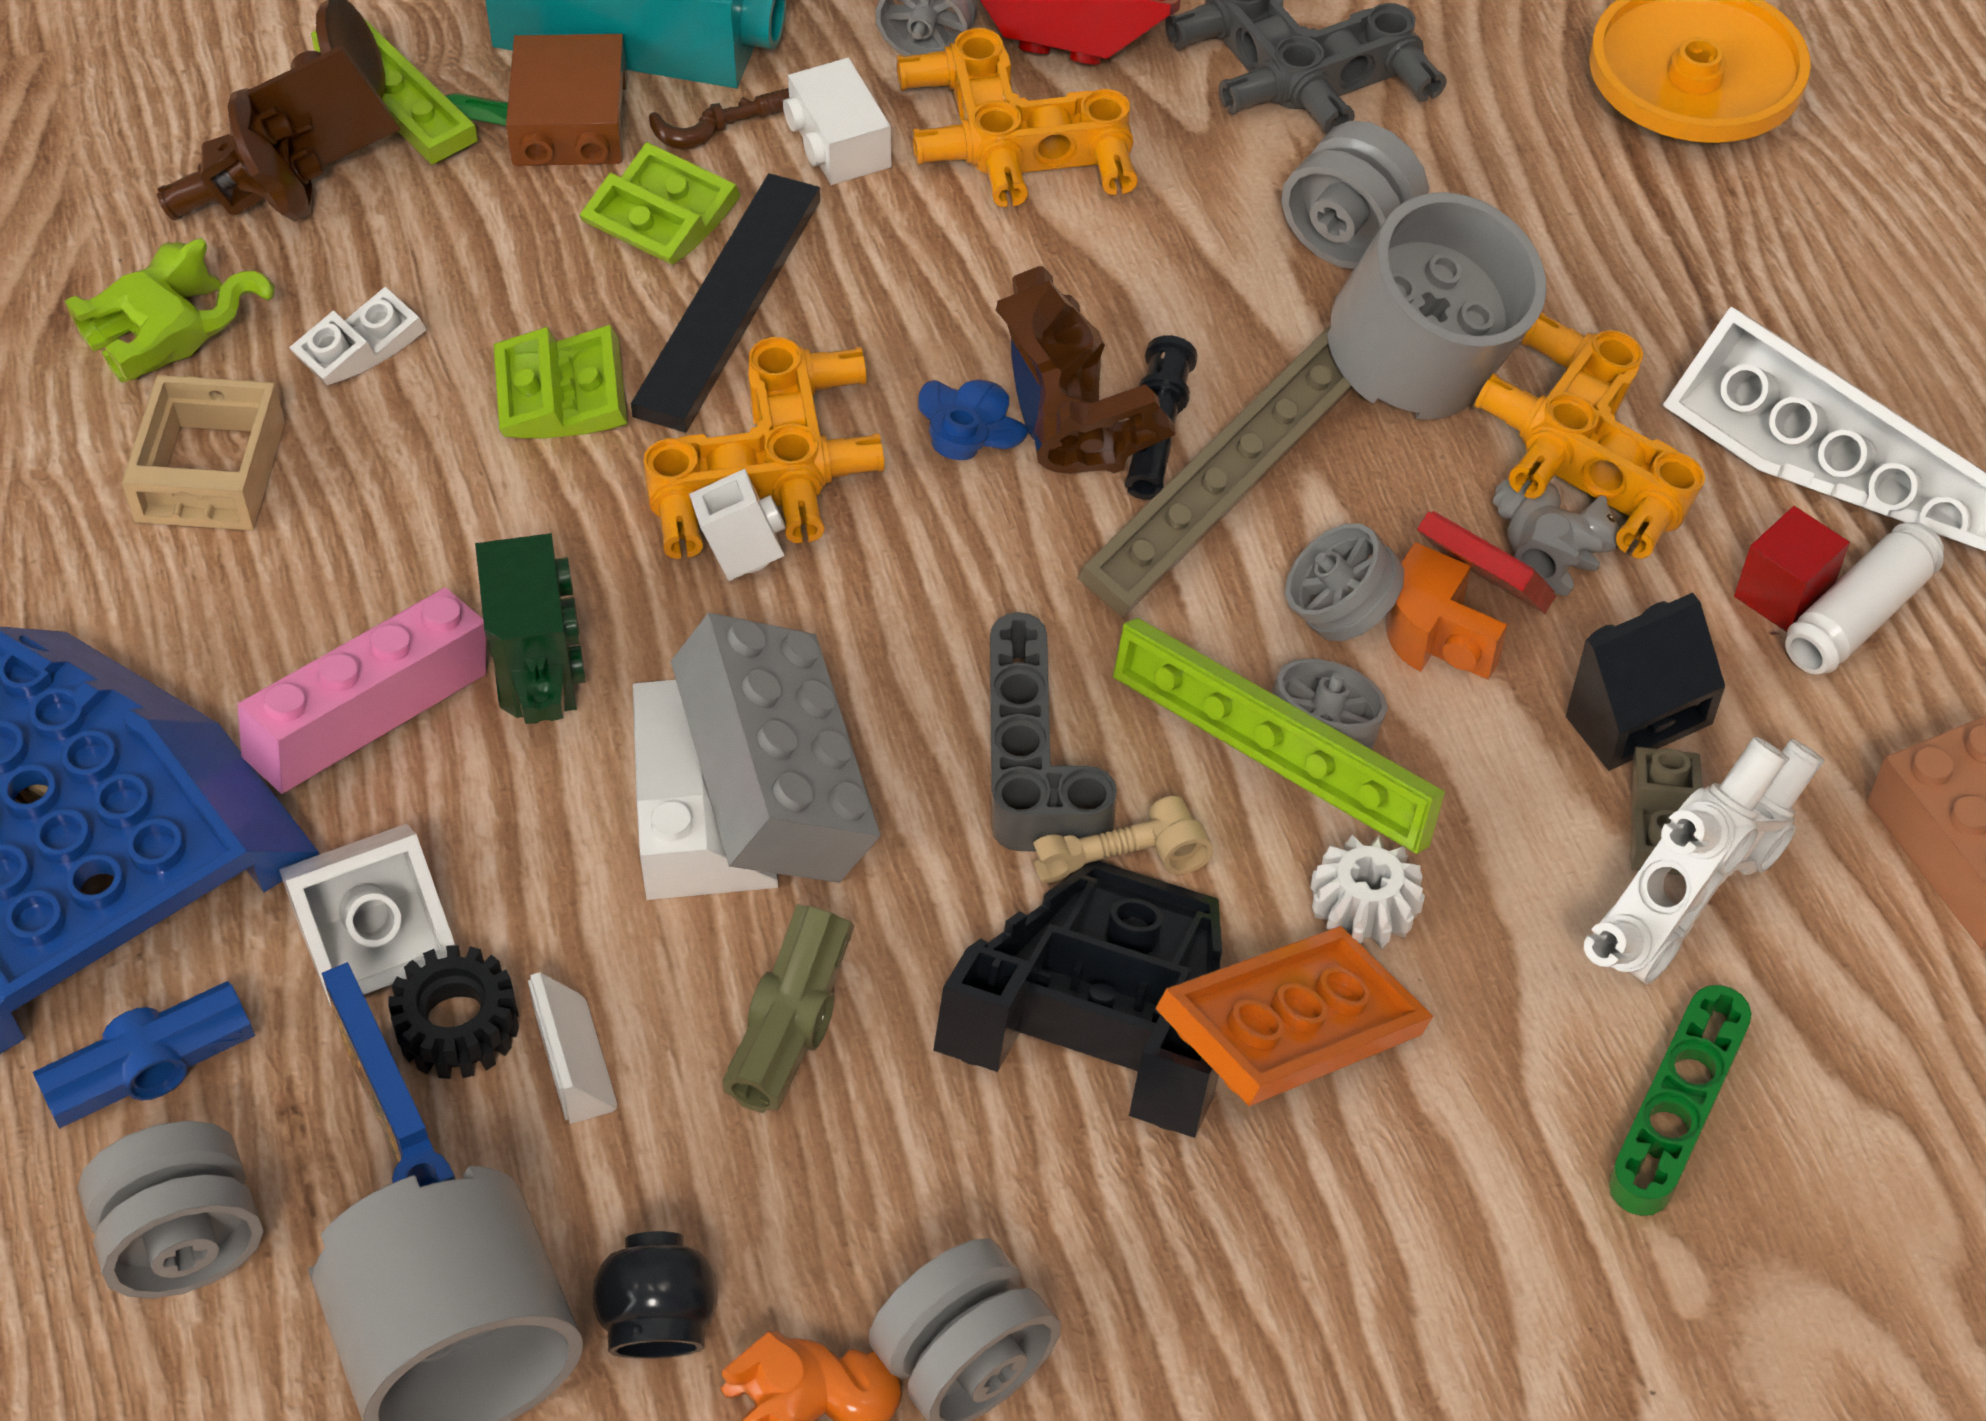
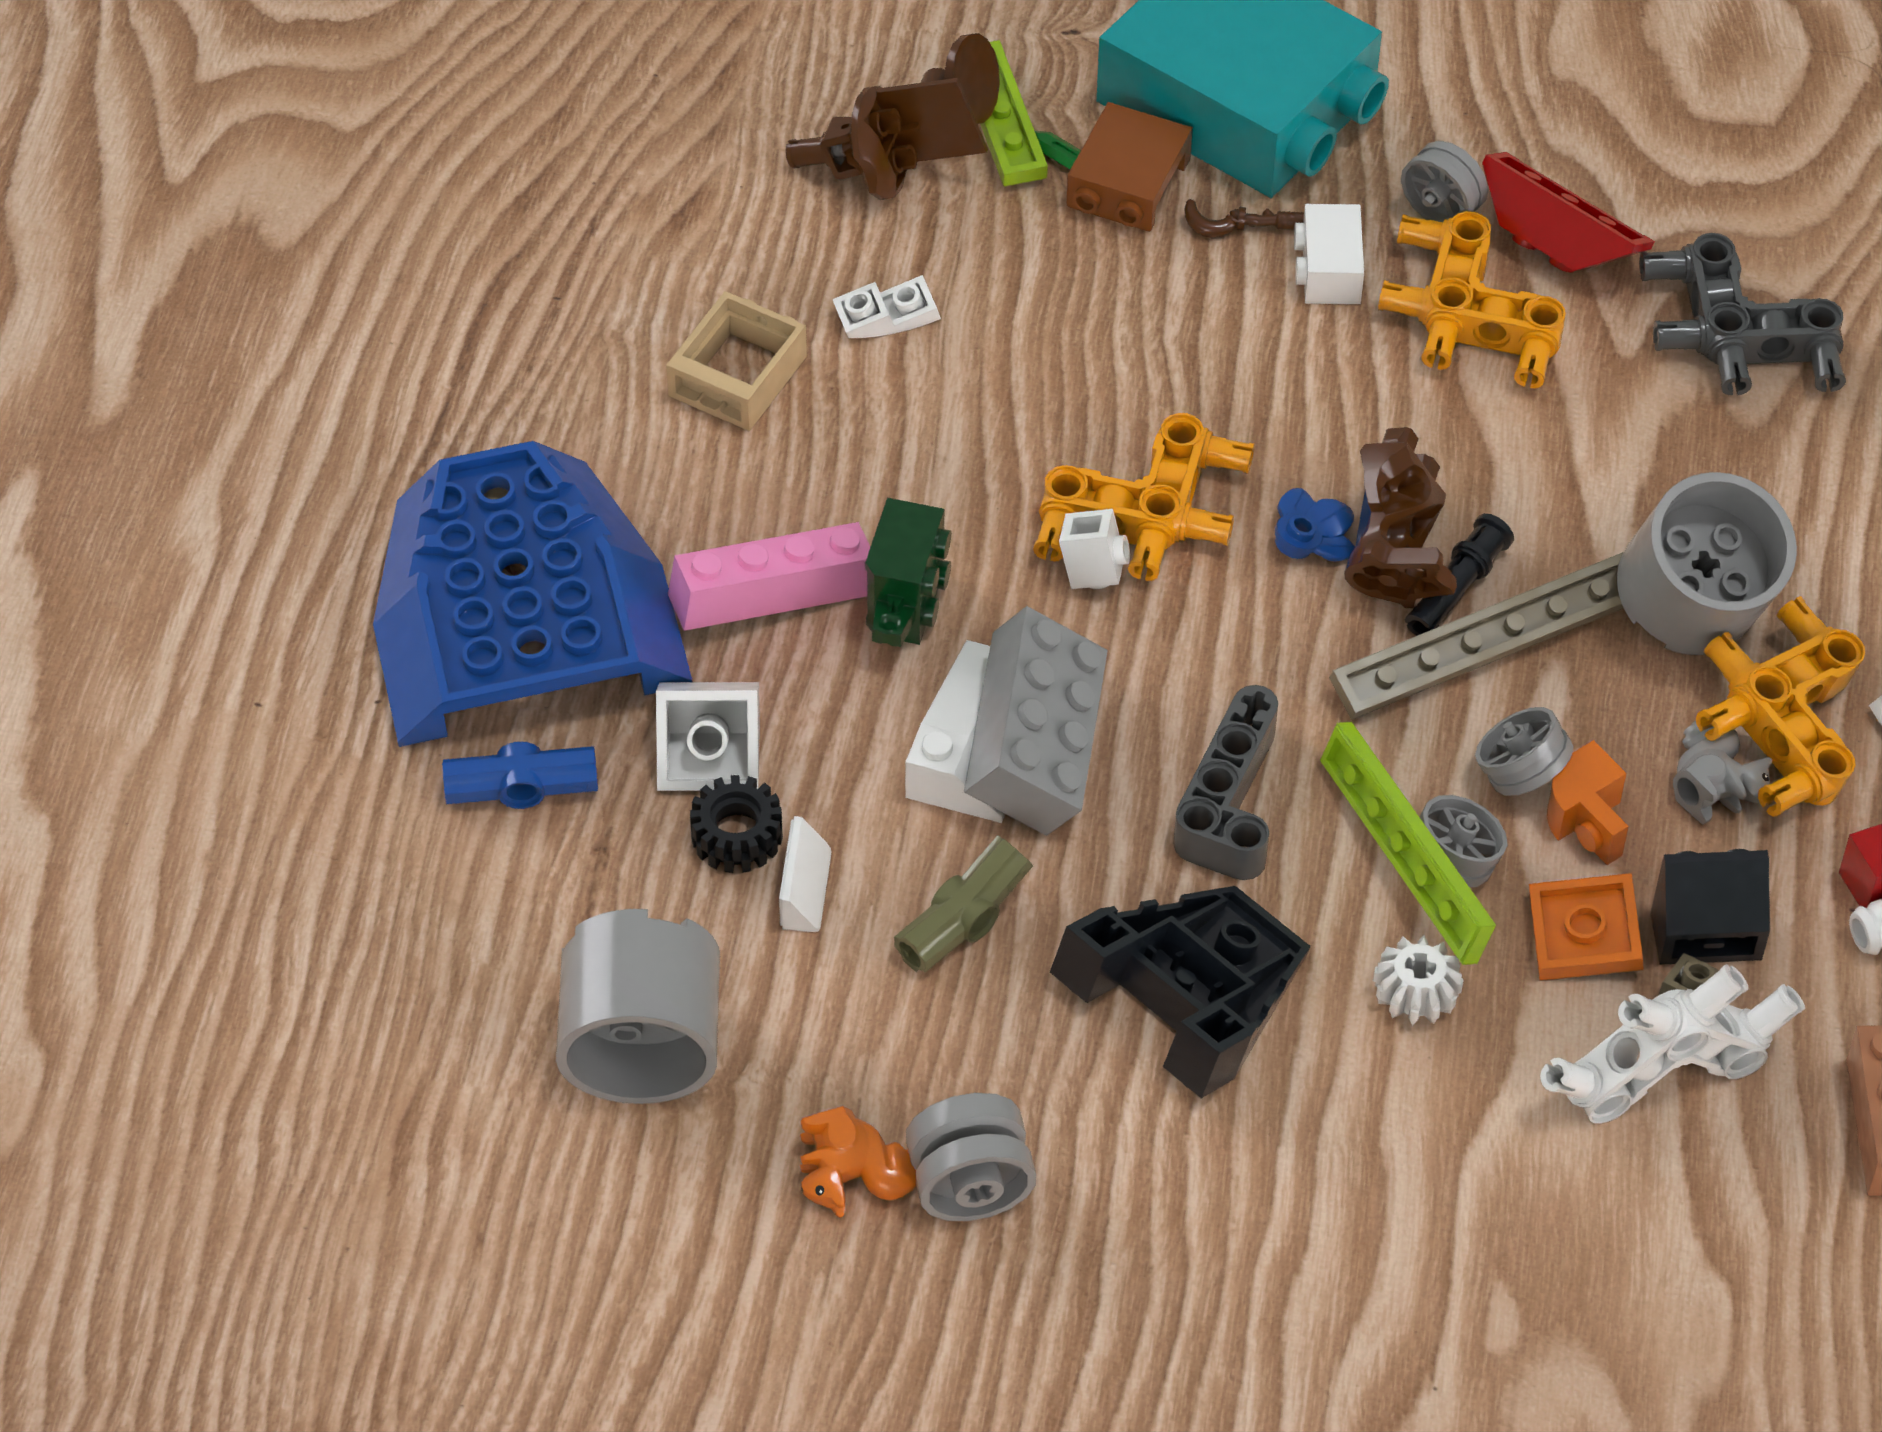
camera: 25 degrees right, 0 degrees up
(156, 311) = (745, 236): lime animal -> none
(169, 1209) = (493, 880): light grey wheel -> none
(383, 1082) = (663, 844): blue tile -> none
(559, 385) = (1019, 395): lime slope -> none
(655, 1297) = (781, 1057): black piece -> none
(661, 204) = (1162, 277): lime slope -> none
(725, 303) = (1176, 371): black tile -> none
(1170, 832) = (1300, 888): tan brick -> none
(1293, 1014) = (1308, 1039): orange plate -> none
(1350, 189) = (1703, 438): light grey wheel -> none
(1487, 561) = (1642, 775): red tile -> none
(1513, 758) = (1586, 927): none -> orange plate
(1681, 1098) = (1574, 1212): green beam -> none

